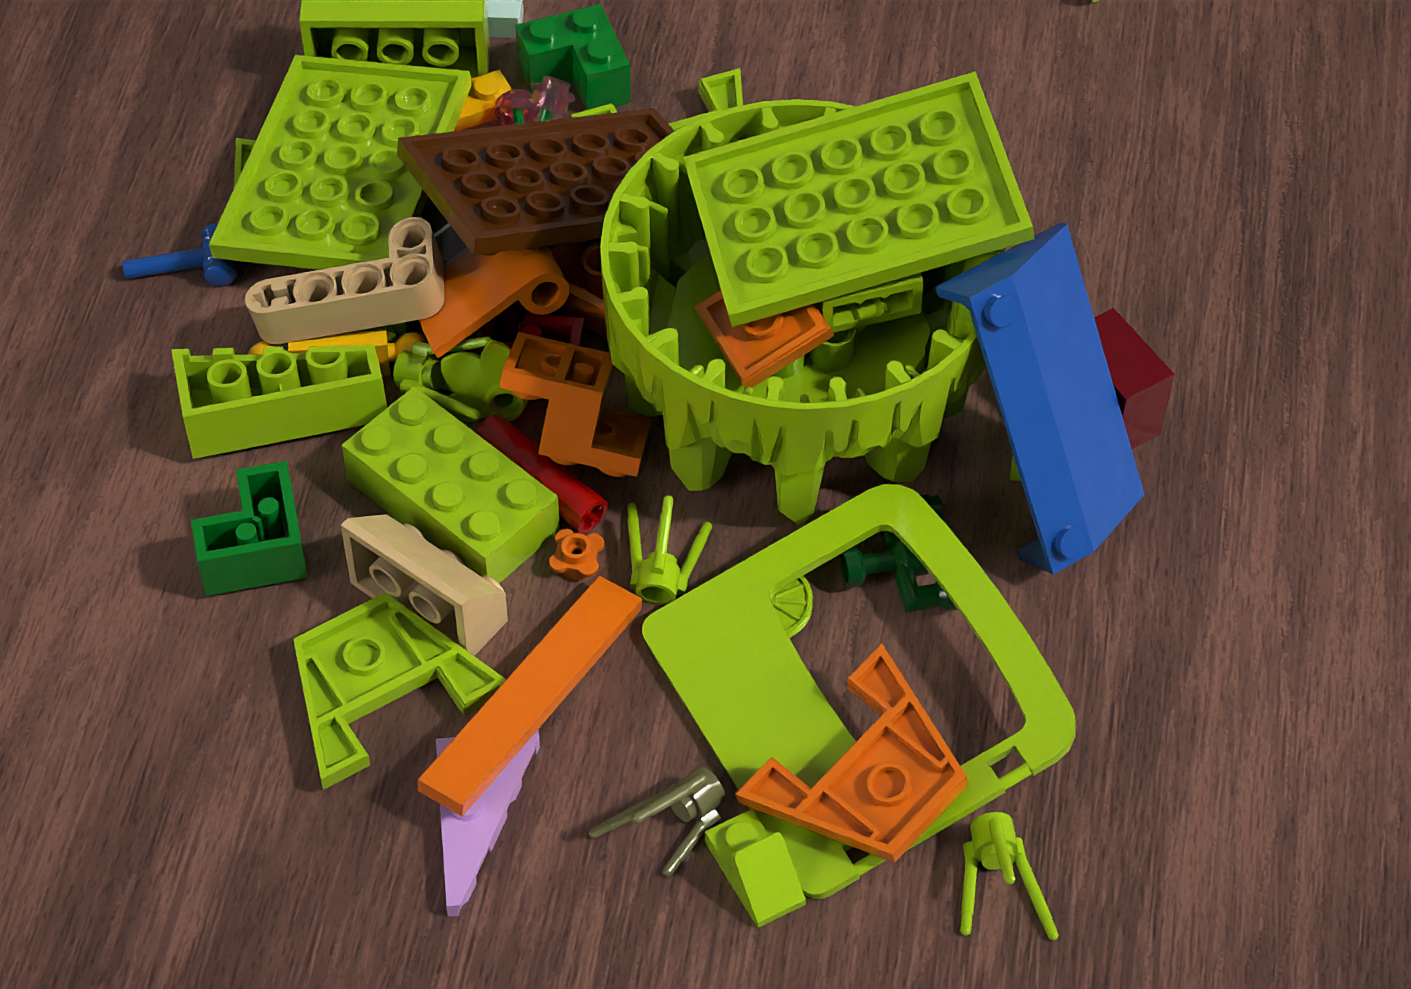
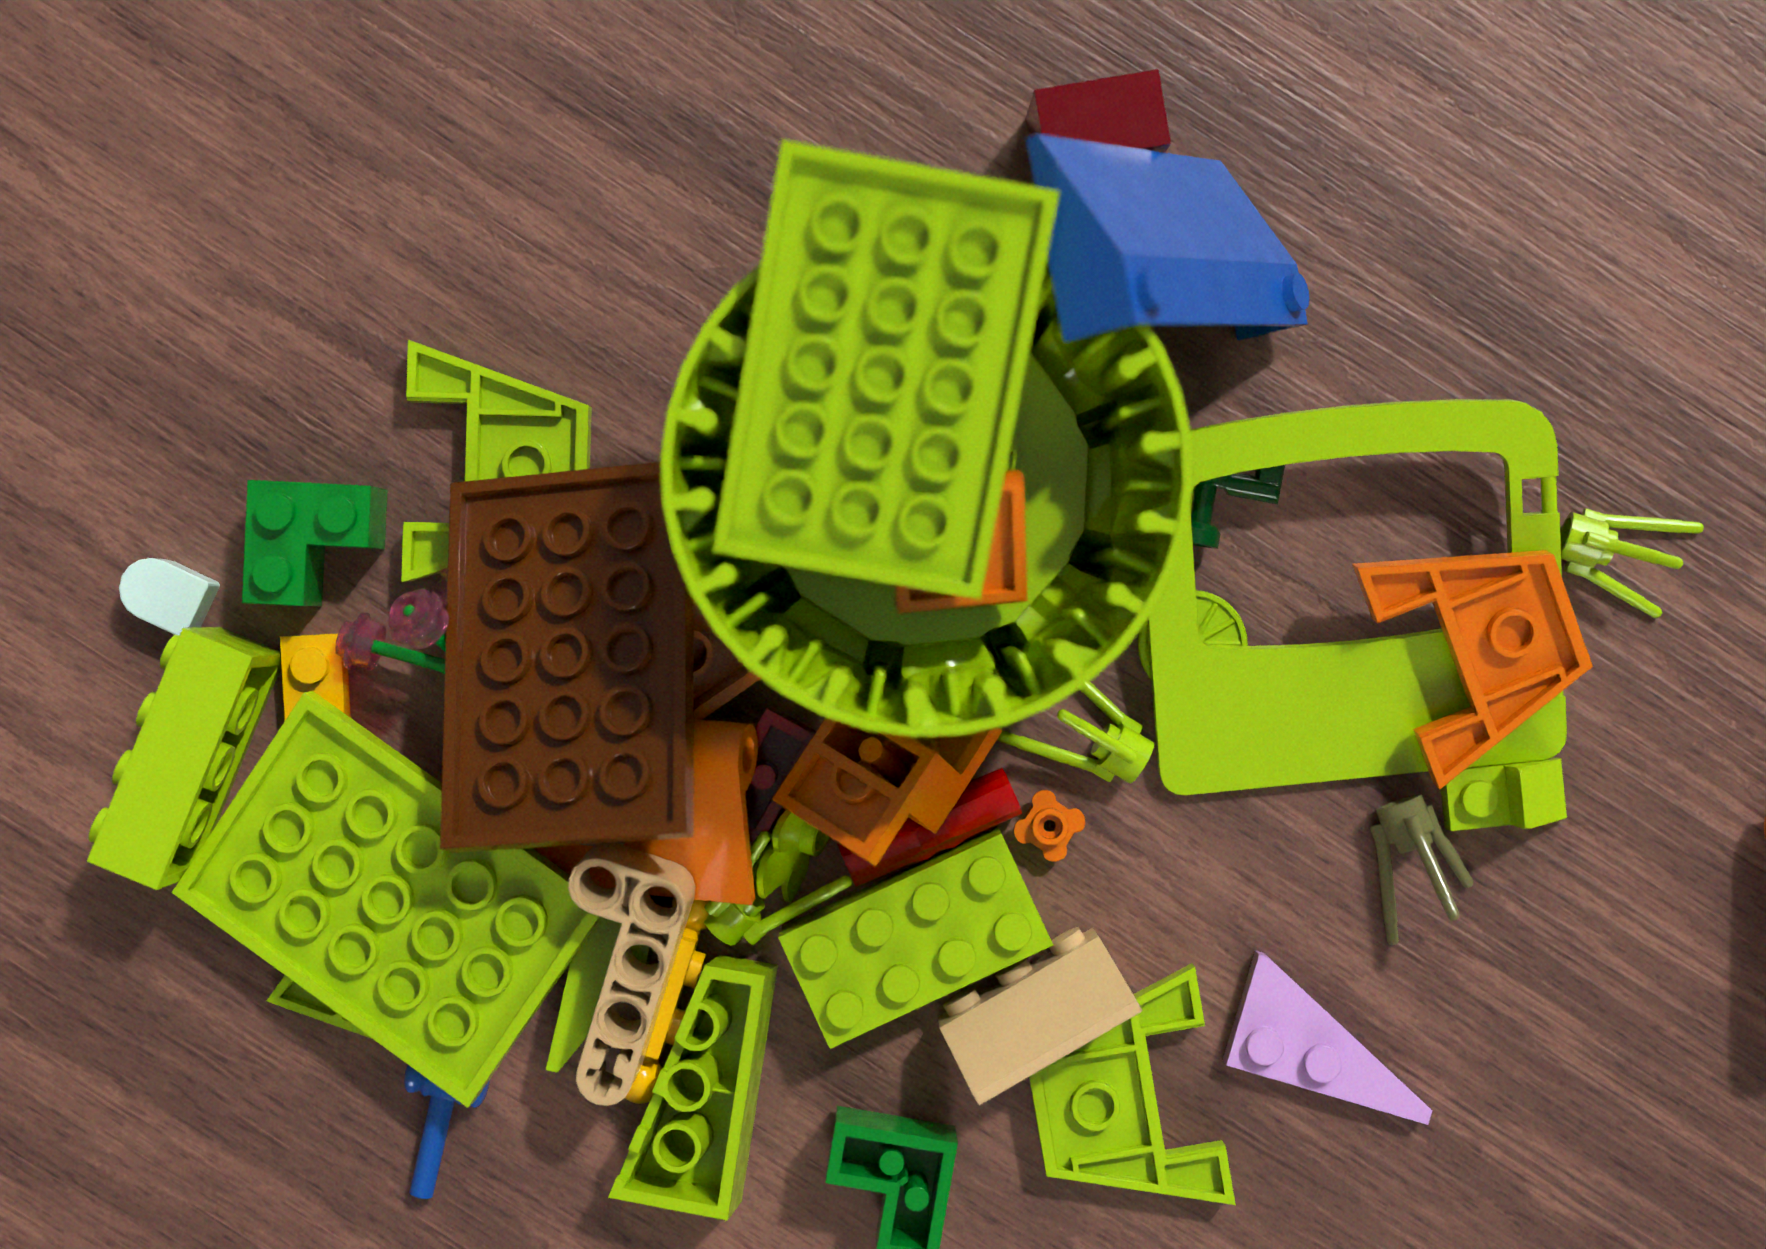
camera: 70 degrees left, 35 degrees up
(529, 696) = (1223, 949): orange tile -> none

